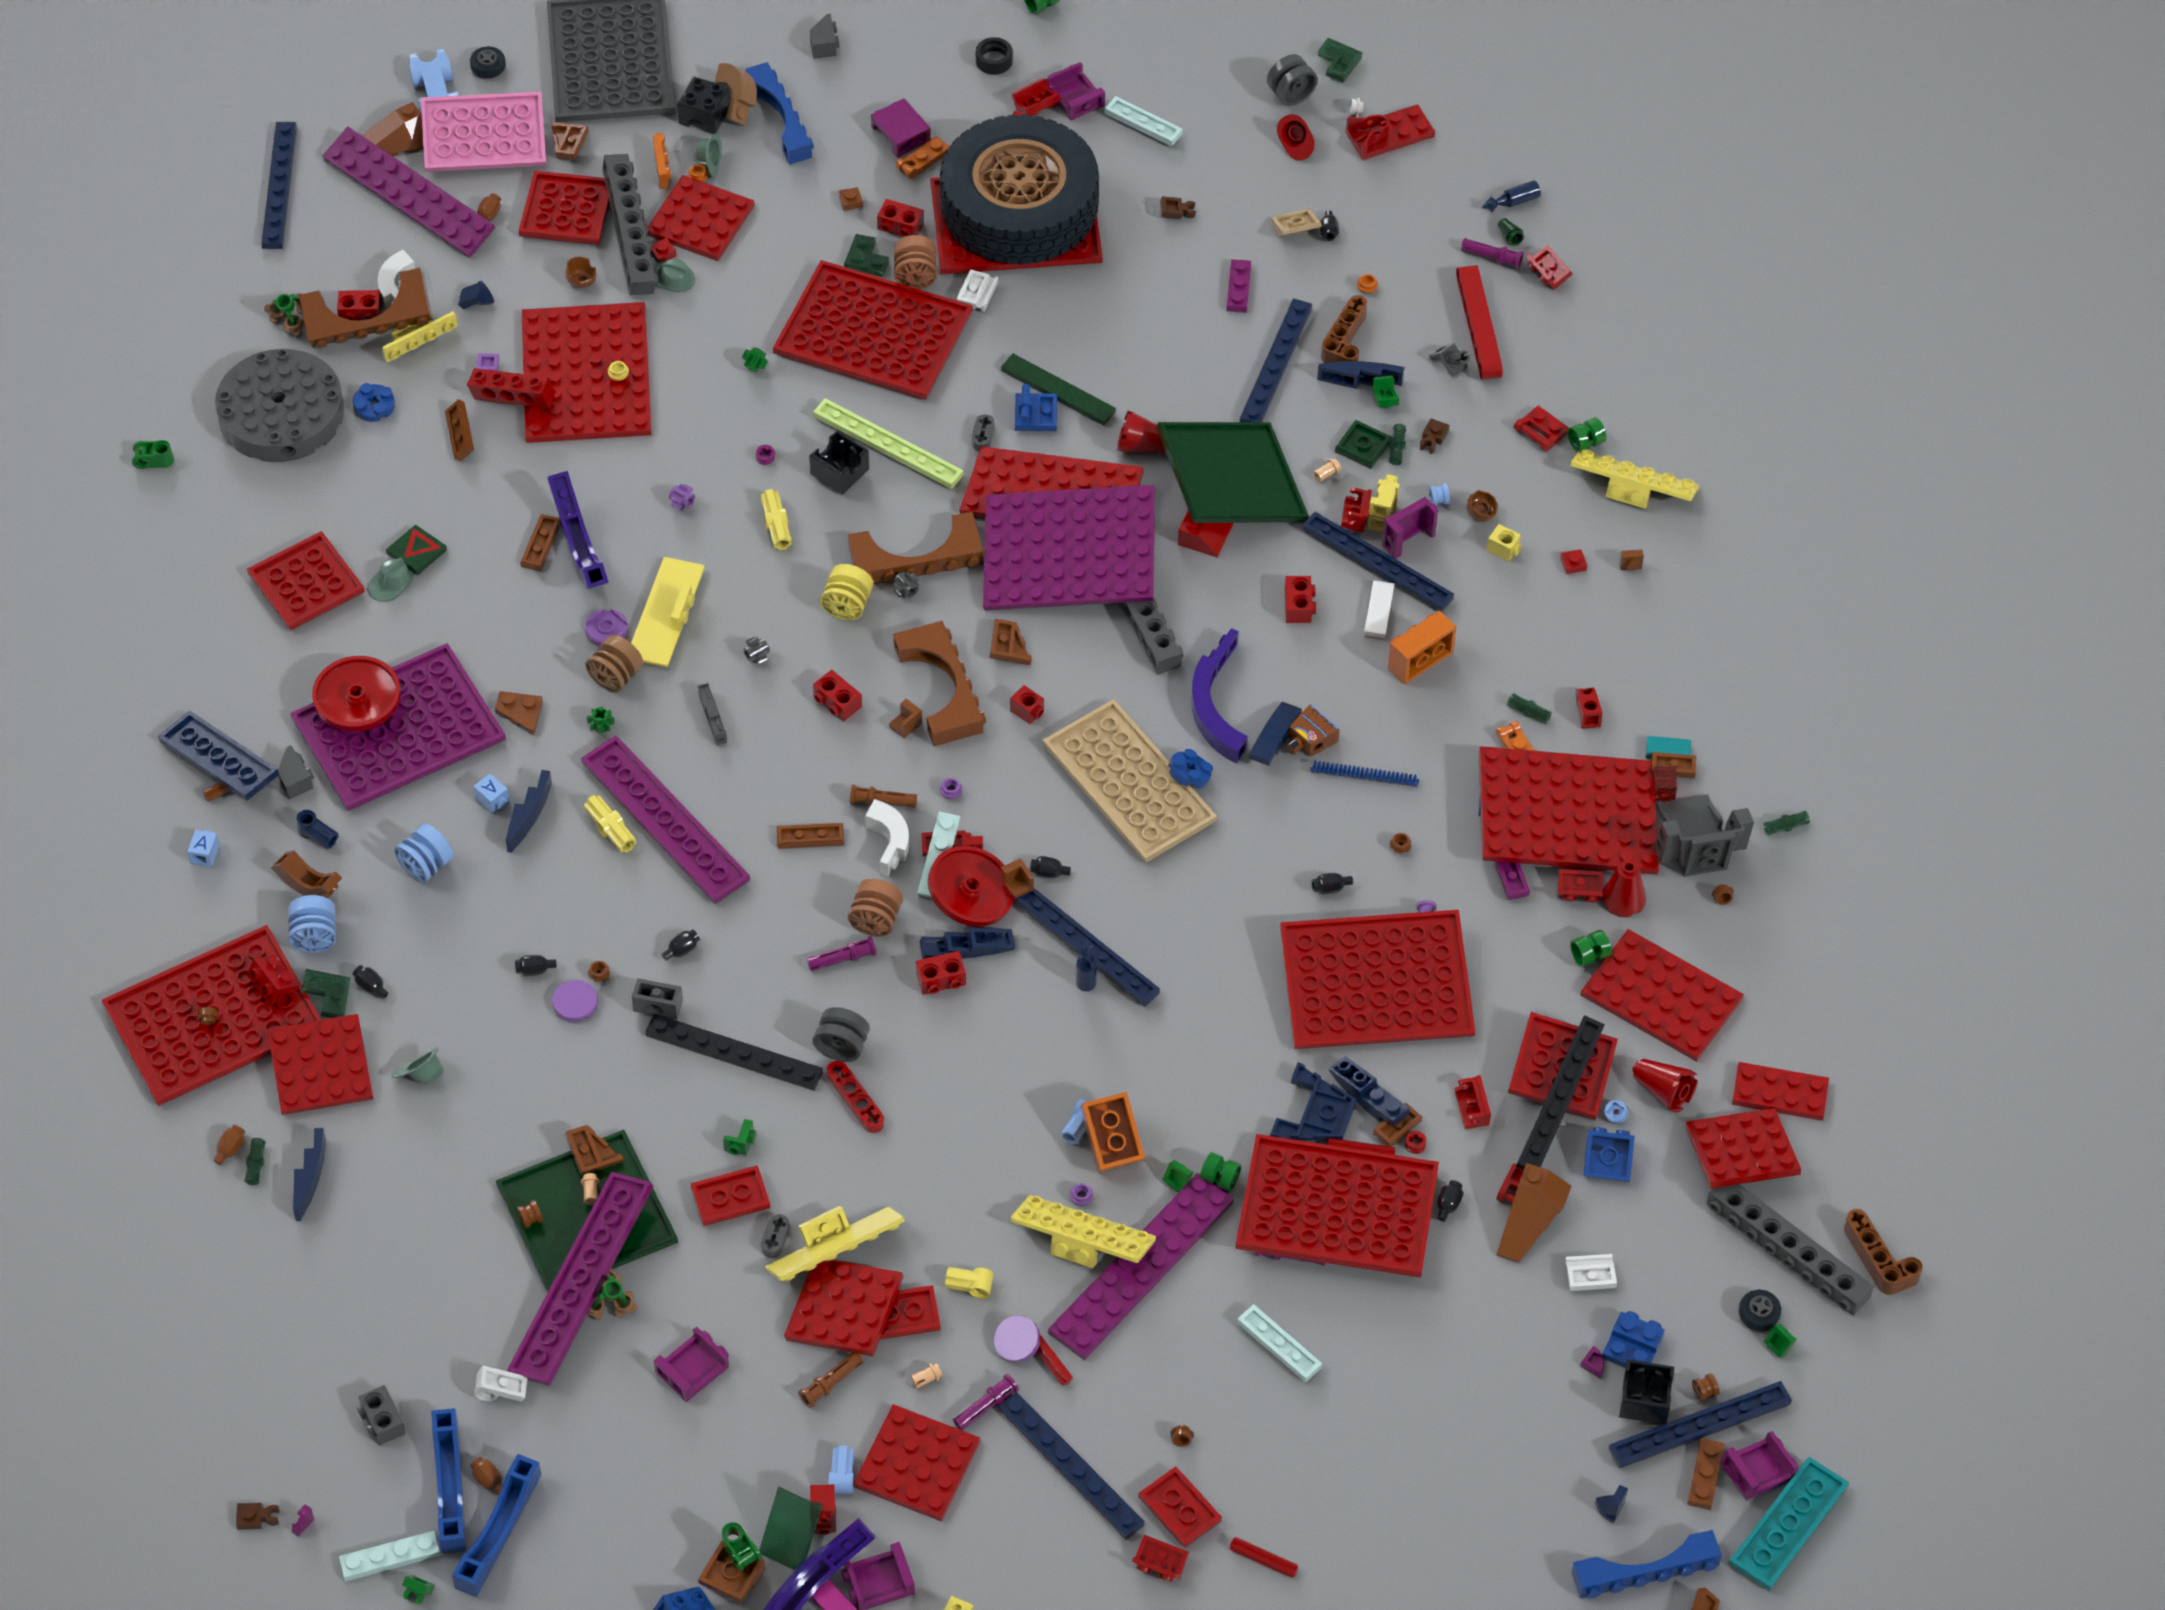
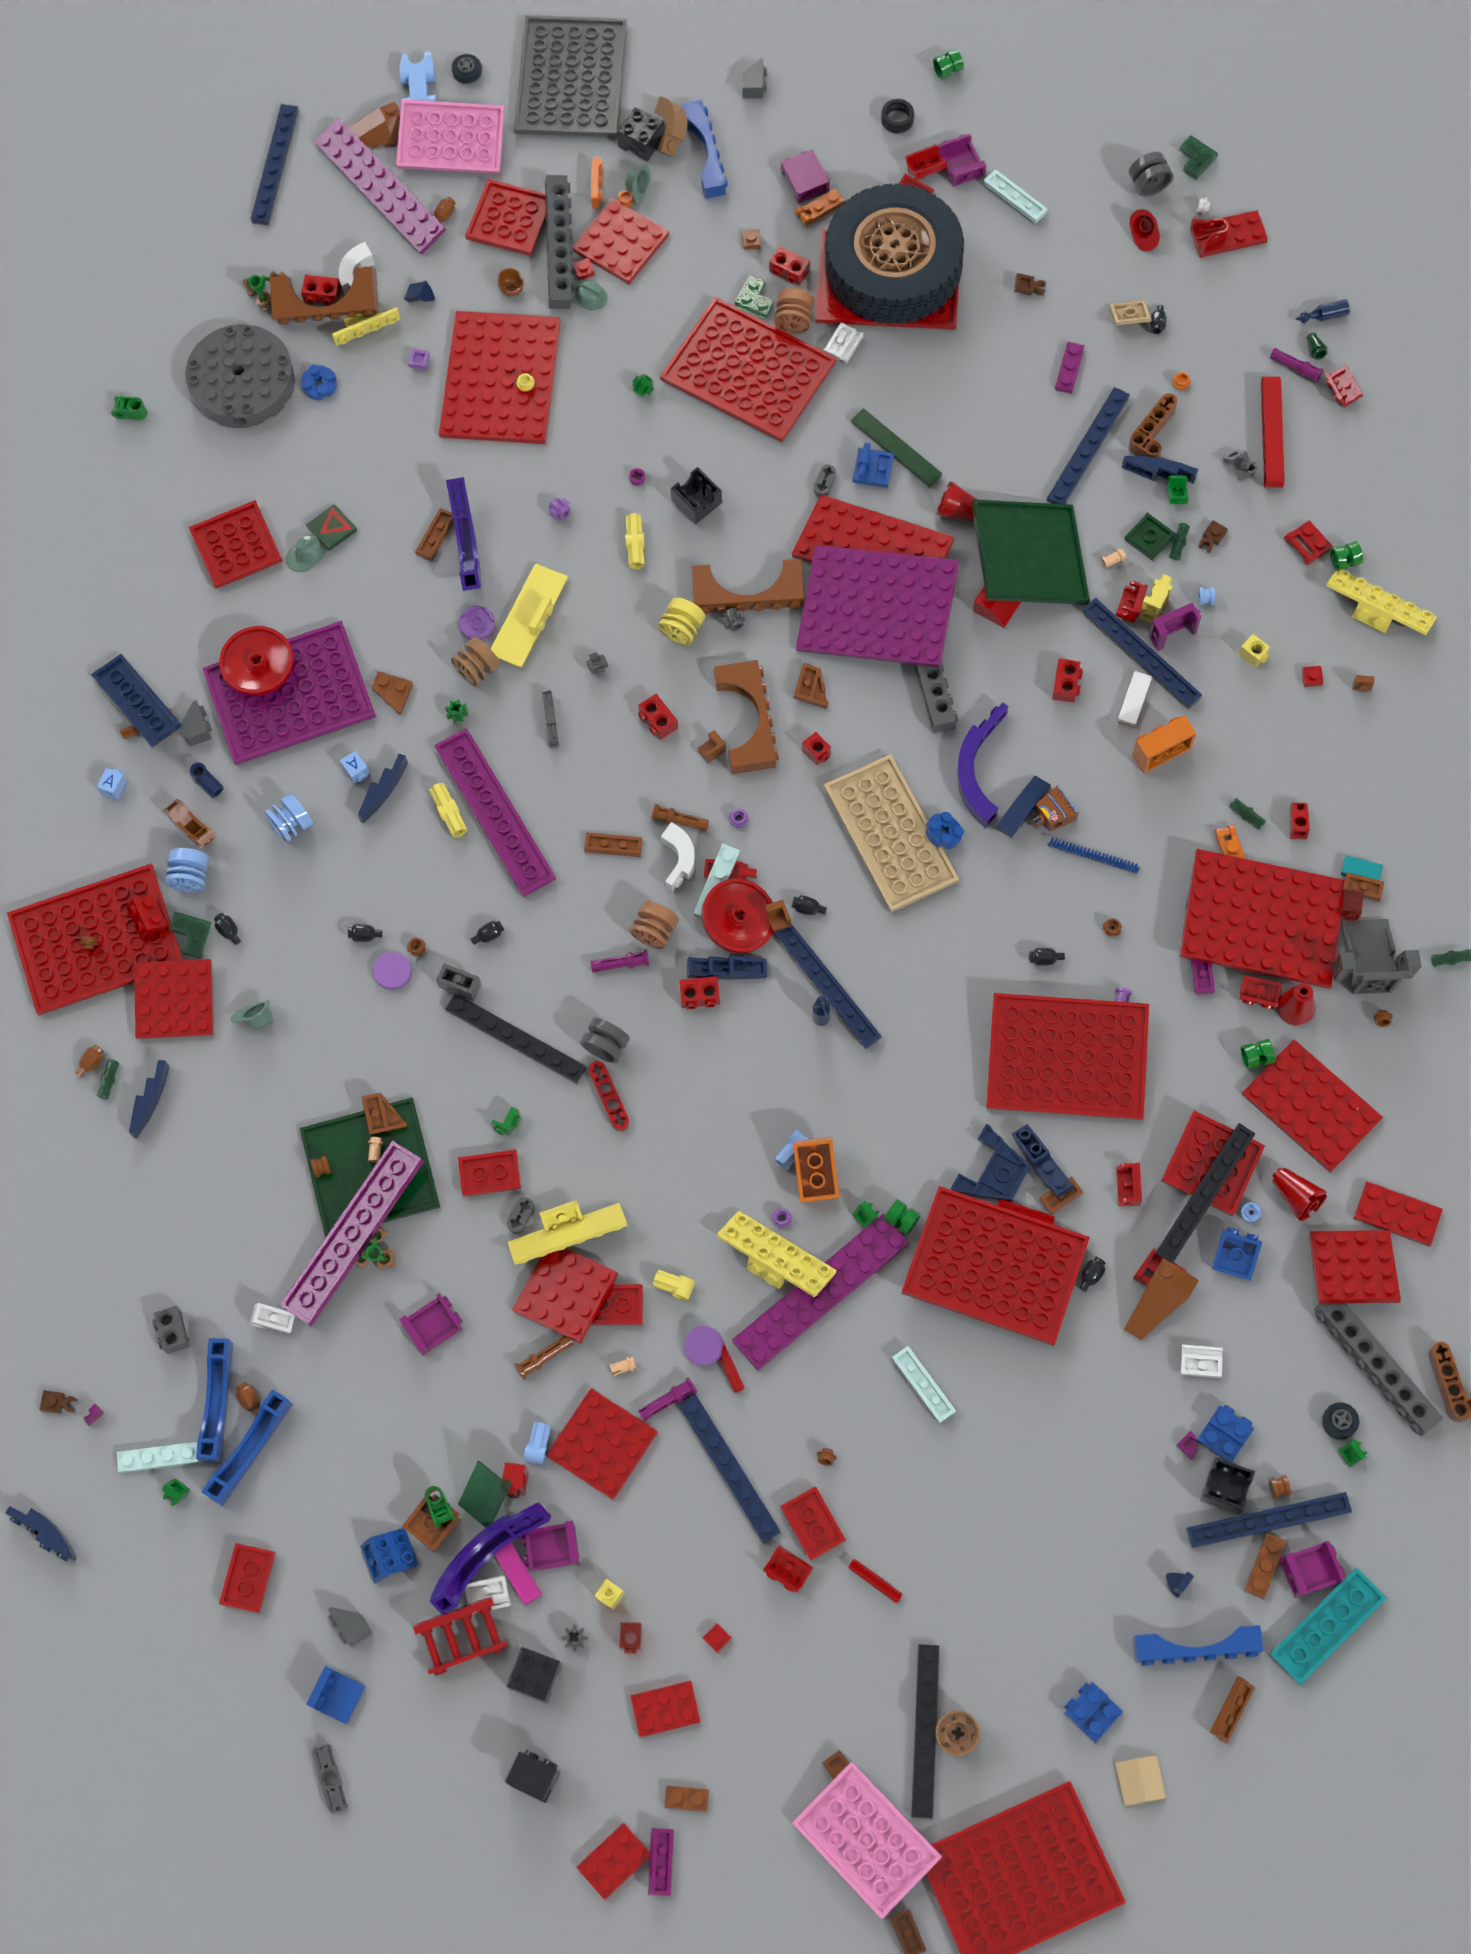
camera: 15 degrees right, 15 degrees up
(459, 430) = (385, 419): dark orange plate -> none
(511, 388) = (433, 387): red brick -> none
(568, 139) = (522, 152): dark orange wing -> none
(888, 443) = (742, 481): yellowish green plate -> none
(1415, 1149) = (1079, 1210): red bush -> none
(1482, 506) = (1242, 612): dark orange hair -> none

